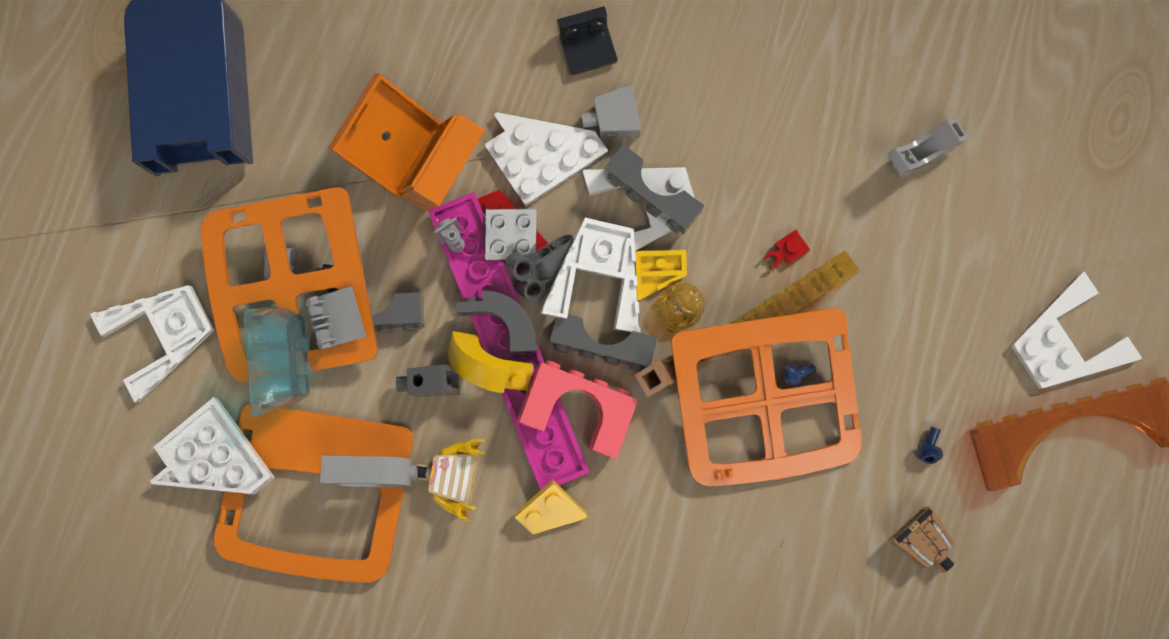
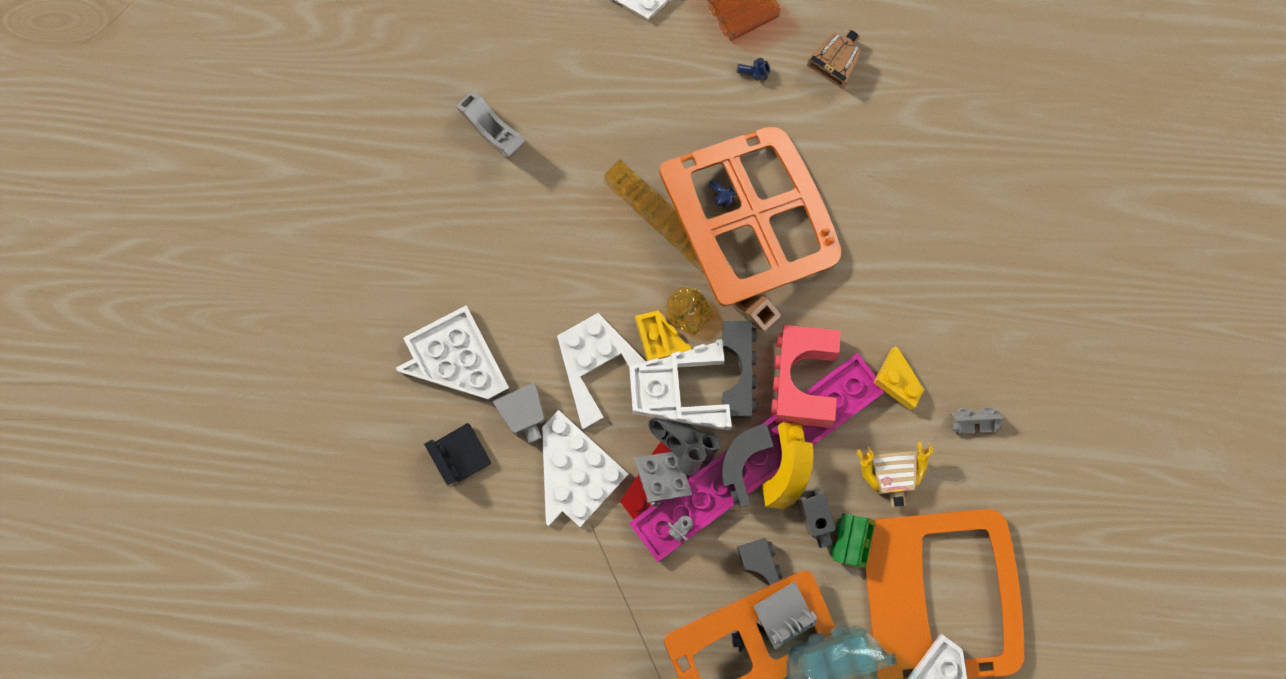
camera: 105 degrees left, 0 degrees up
(367, 471) = (914, 545): light grey window -> none
(394, 413) = (853, 540): none -> green brick
(421, 151) = (610, 581): orange container -> none
(484, 594) = (985, 418): none -> light grey hinge
(677, 209) = (577, 385): dark grey arch -> none
(688, 62) = (454, 356): none -> white wing
(788, 248) = (610, 226): red plate -> none

